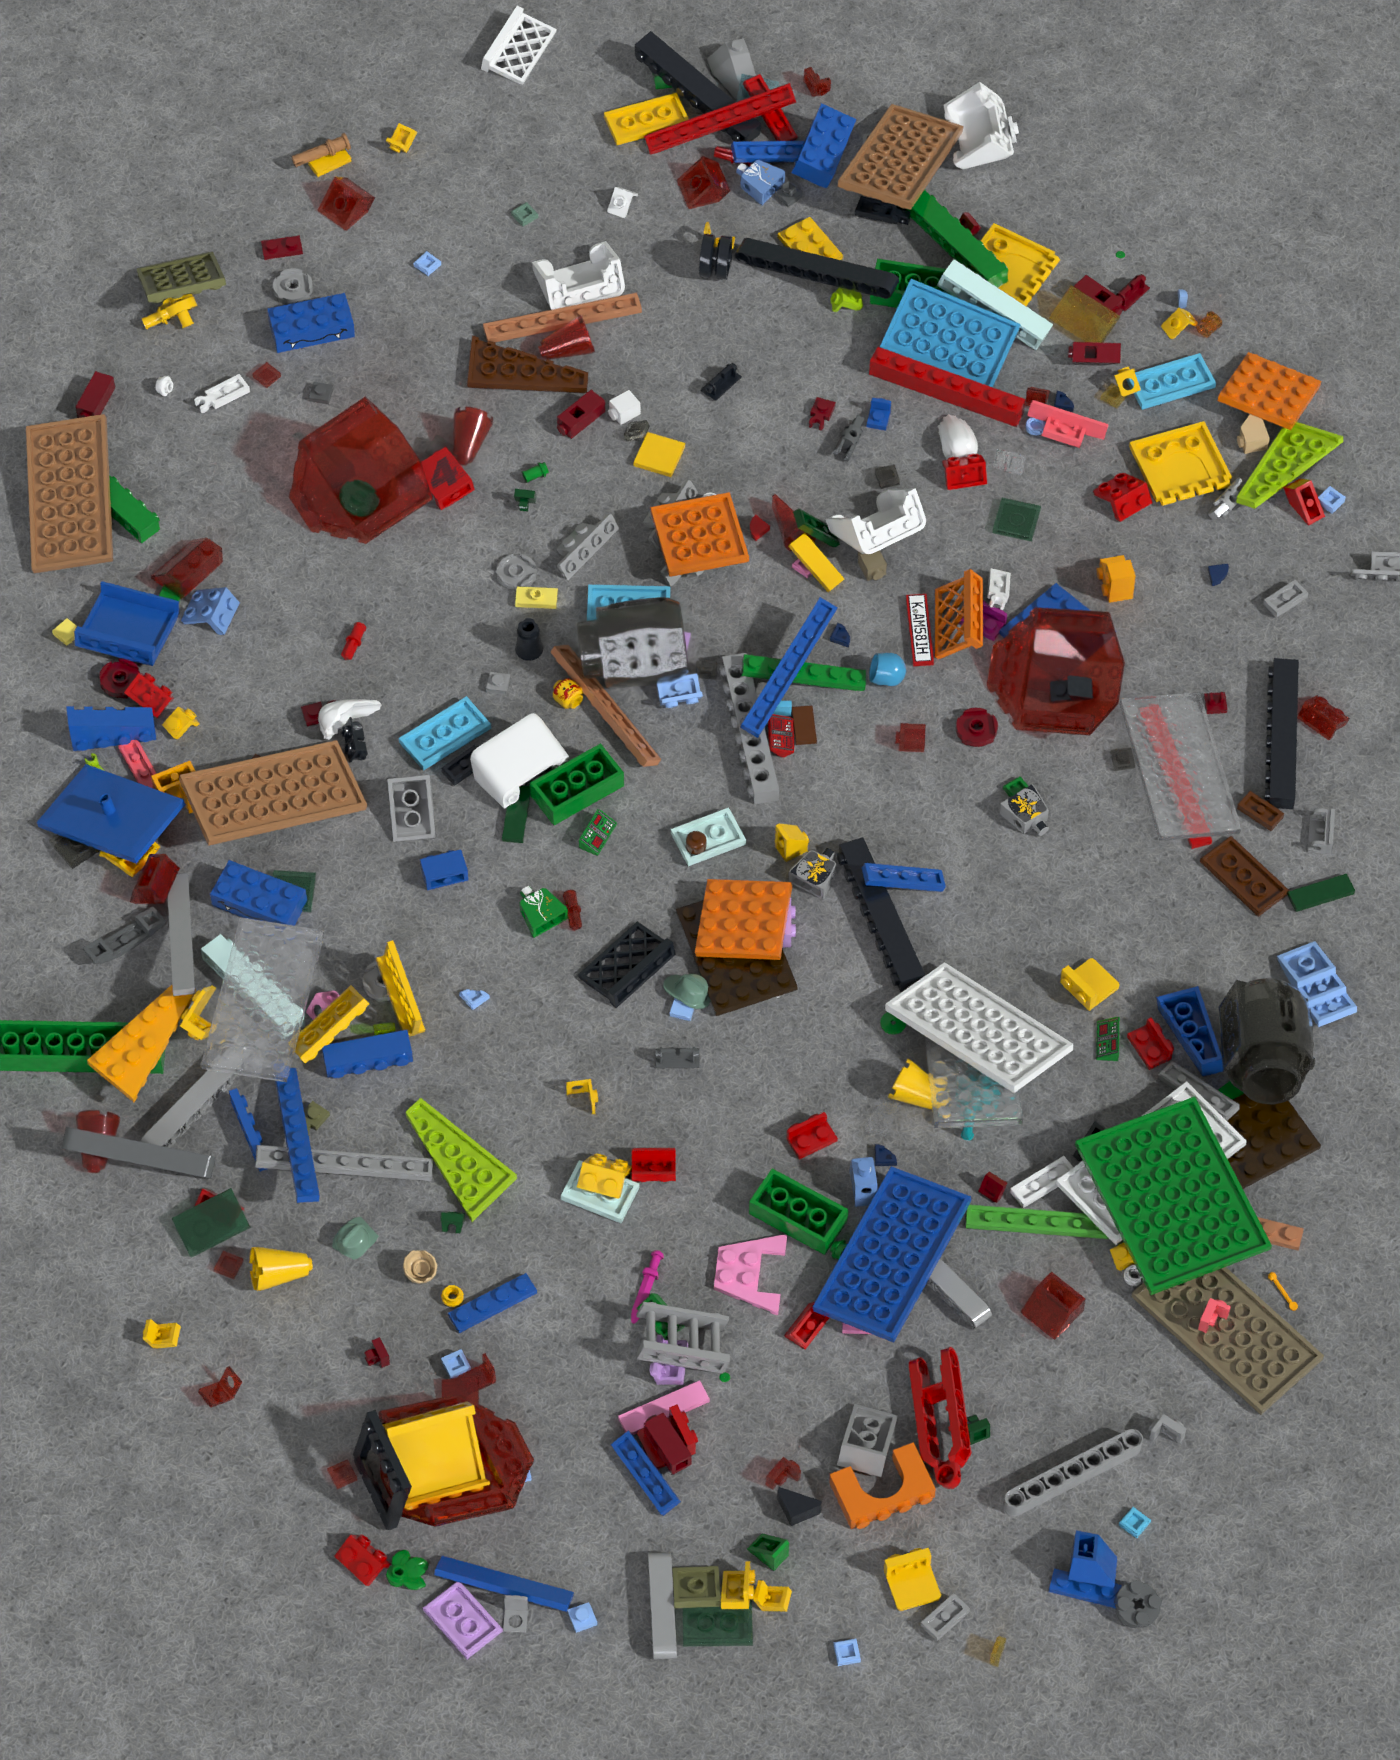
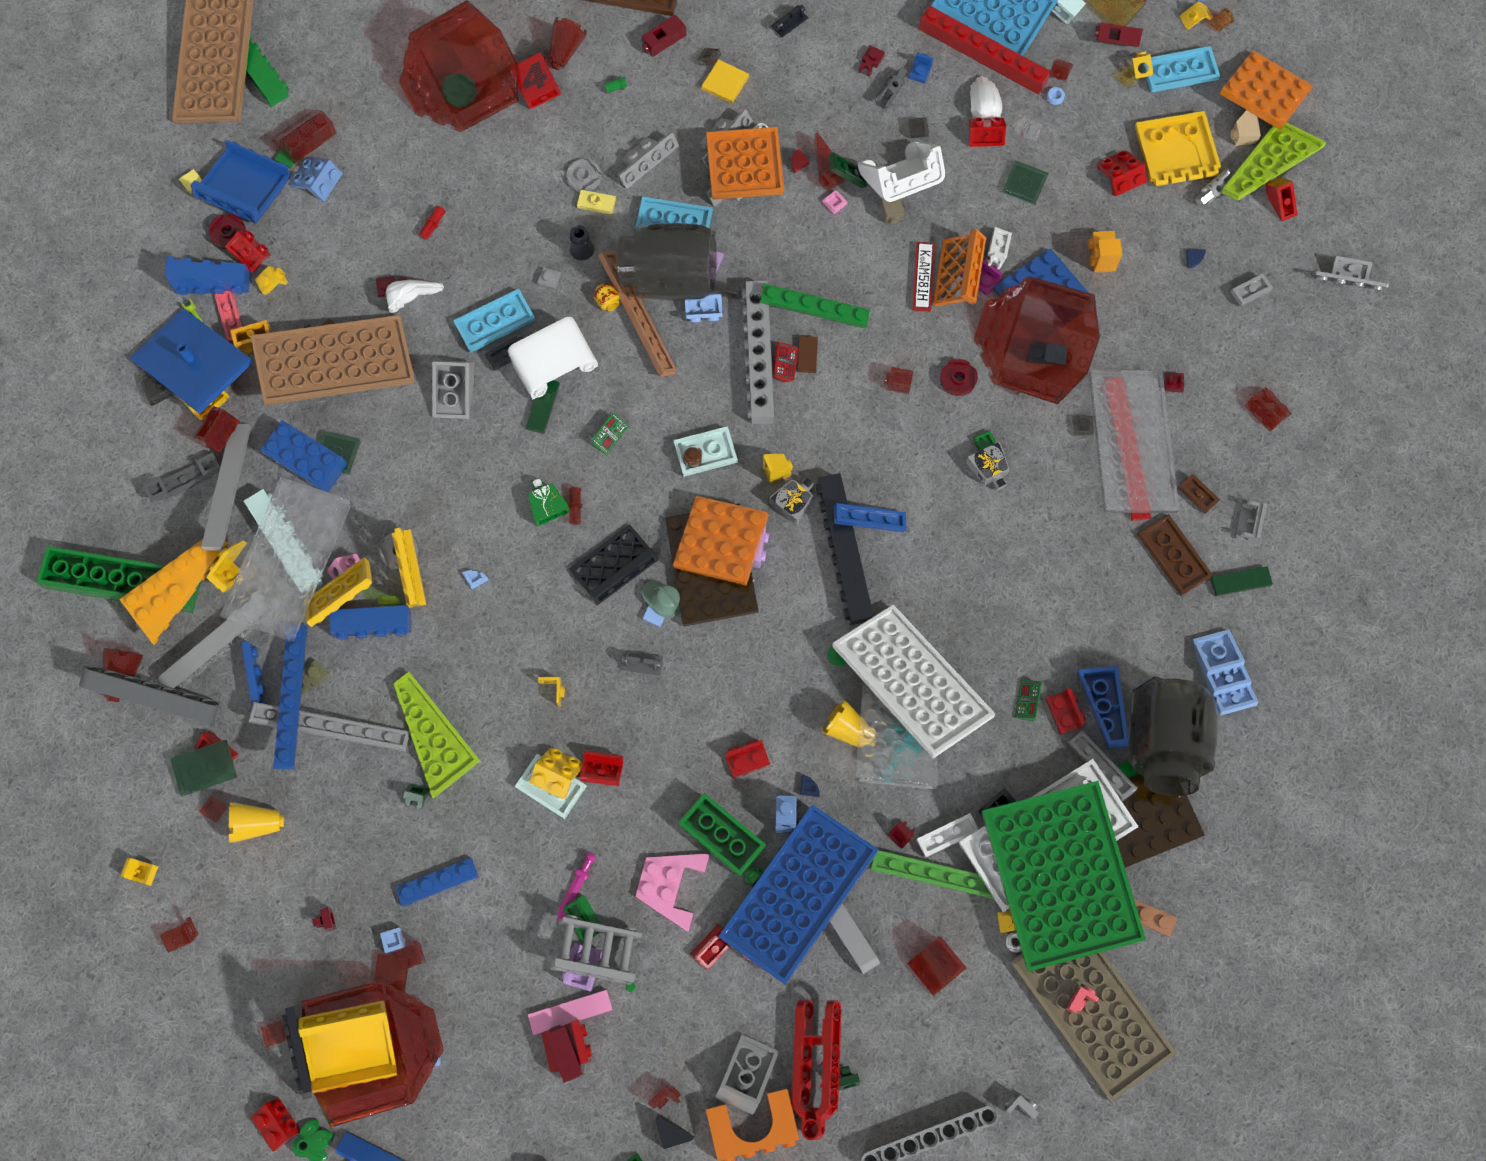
camera: 10 degrees right, 15 degrees up
(353, 732) = (415, 309): black hinge -> none
(354, 1238) = (328, 798): sand green piece -> none
(422, 1263) = (377, 833): tan hair -> none
(444, 869) = (469, 451): blue brick -> none
(452, 1289) = (396, 870): yellow plate -> none
(525, 497) = (602, 107): dark green tile -> none
(577, 784) = (598, 386): green brick -> none
(624, 407) = (702, 34): white brick -> none
(645, 1473) = (542, 1077): blue plate -> none
(784, 708) = (789, 337): medium azure tile -> none
(788, 667) = (800, 302): blue plate -> none
(816, 562) = (843, 201): yellow tile -> none
(840, 635) = (853, 273): dark blue tile -> none
(890, 669) = (888, 312): dark azure helmet -> none
(1063, 402) = (1083, 77): dark blue tile -> none
(1065, 425) = (1082, 100): coral bracket -> none
(1089, 983) = (1019, 642): yellow bracket -> none
(1273, 1277) = (1155, 993): light orange hinge -> none
(1283, 733) = (1230, 421): black brick -> none
(1331, 499) = (1306, 200): light blue plate -> none

